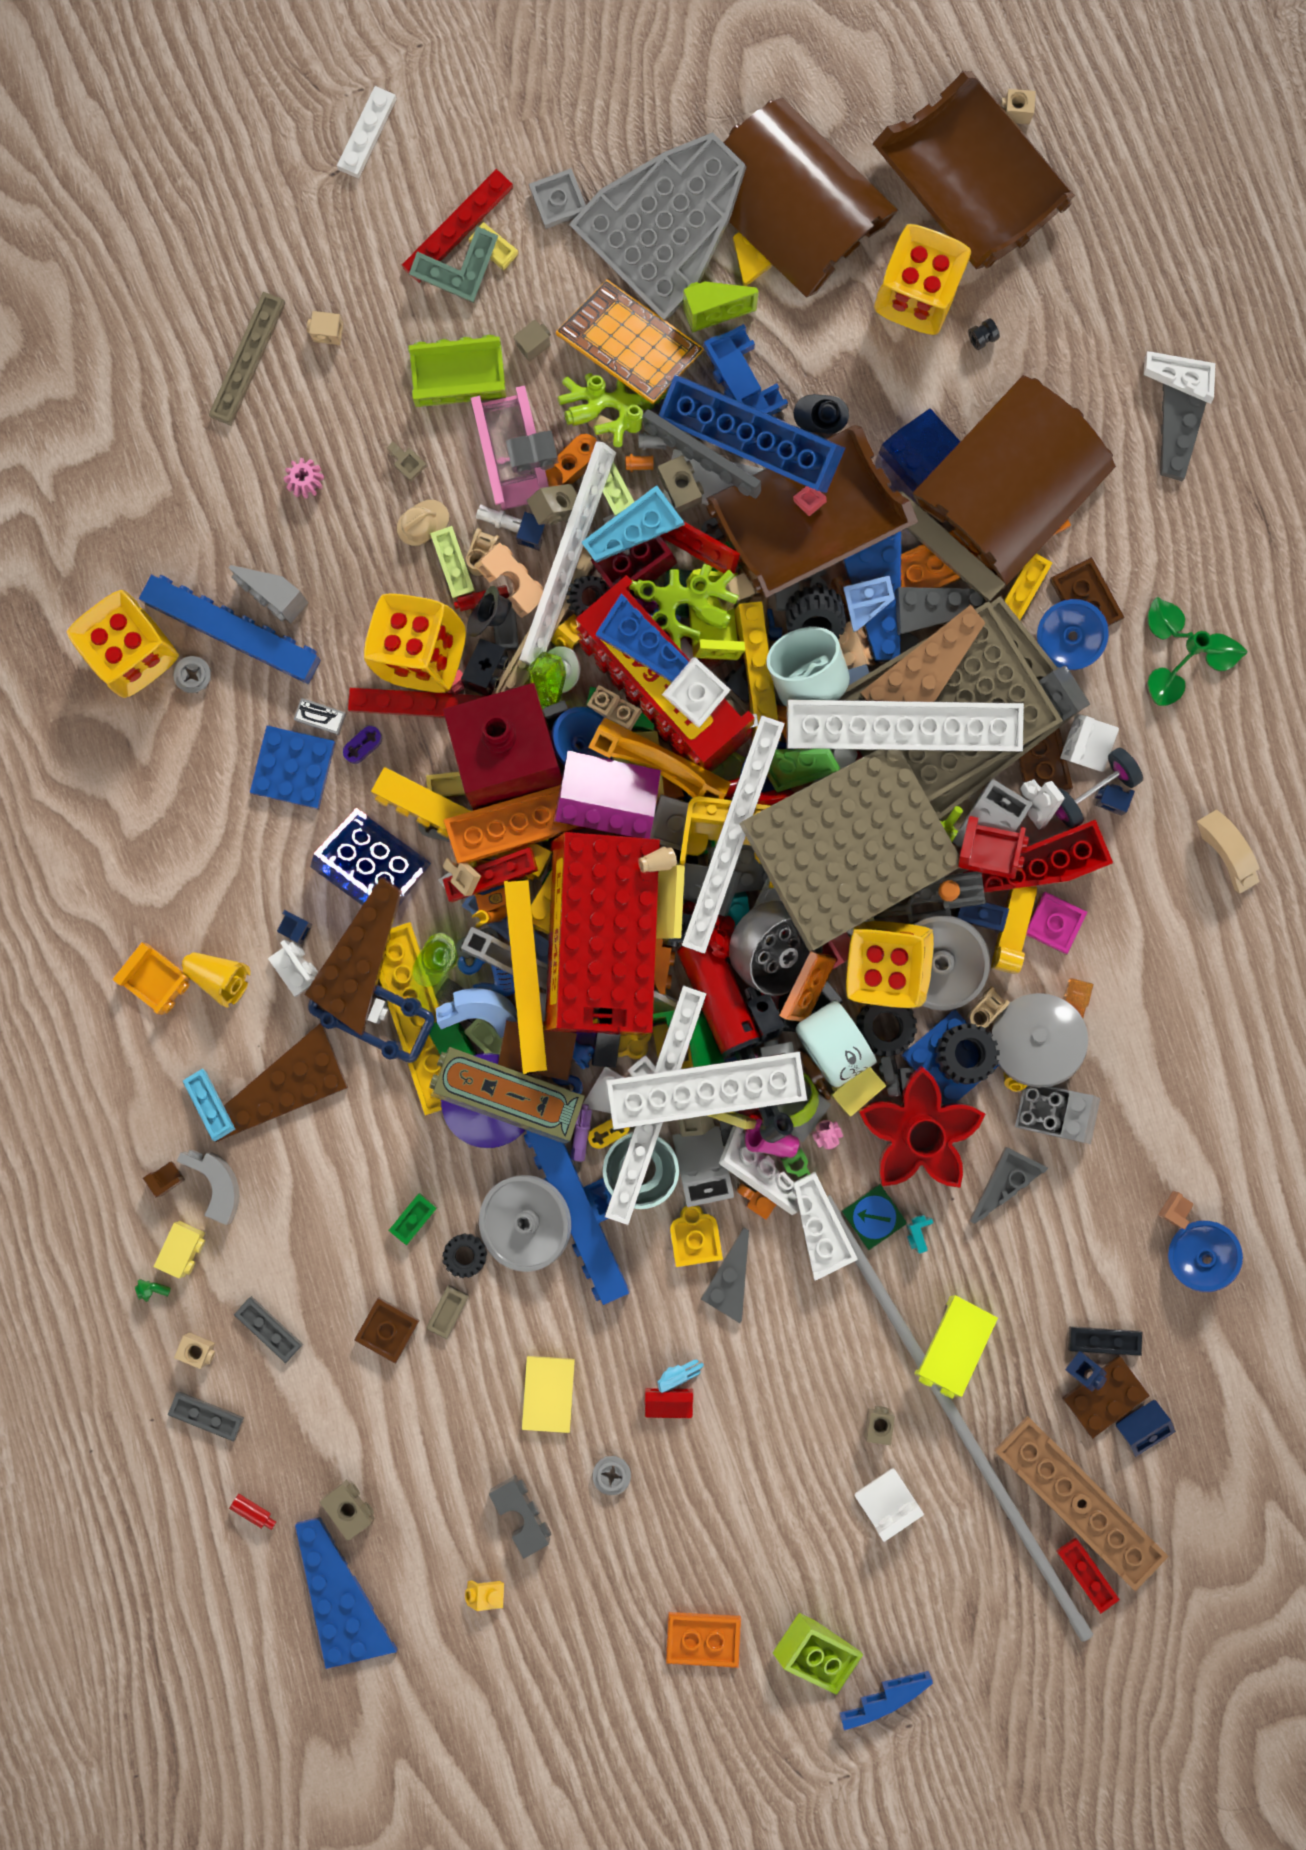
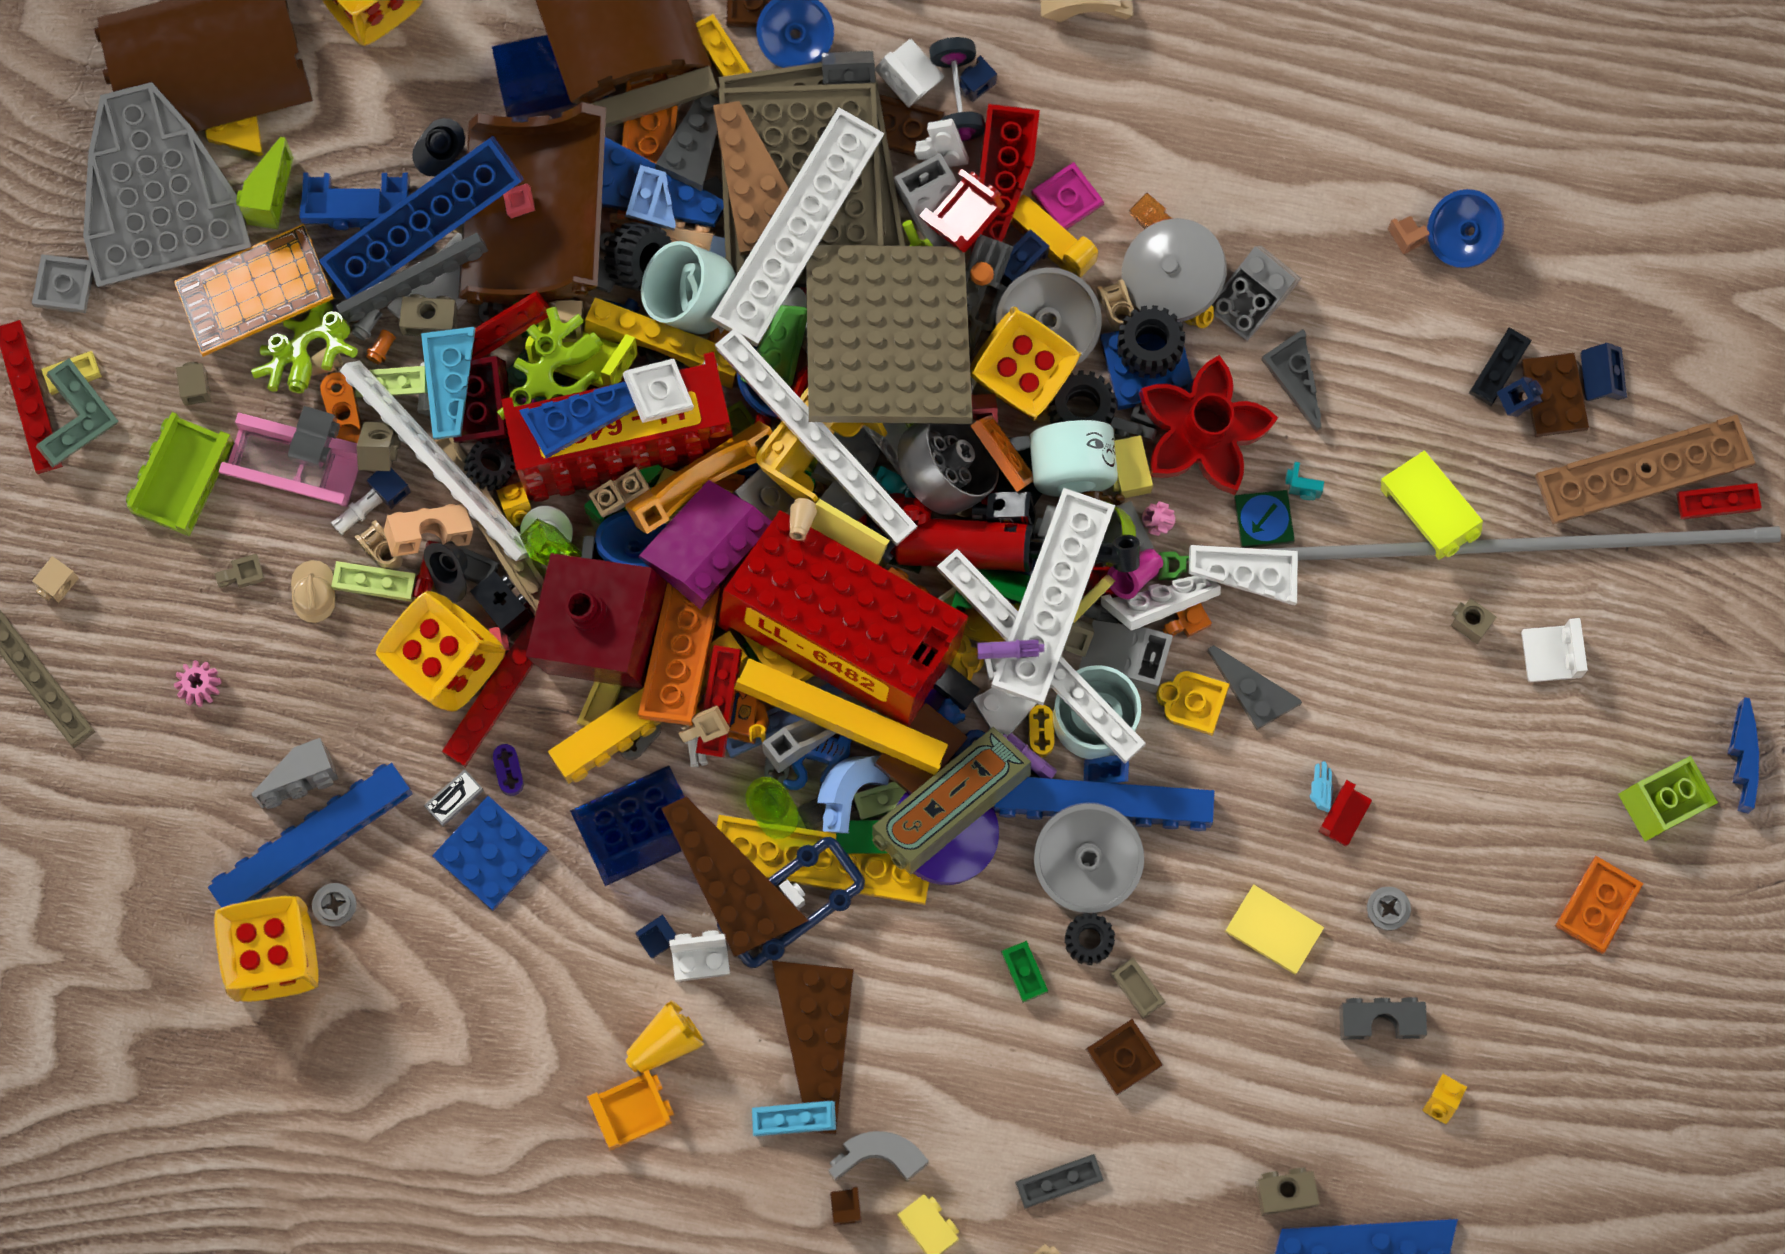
camera: 65 degrees left, 10 degrees down
(640, 1080) = (1009, 649): none -> medium lavender piece

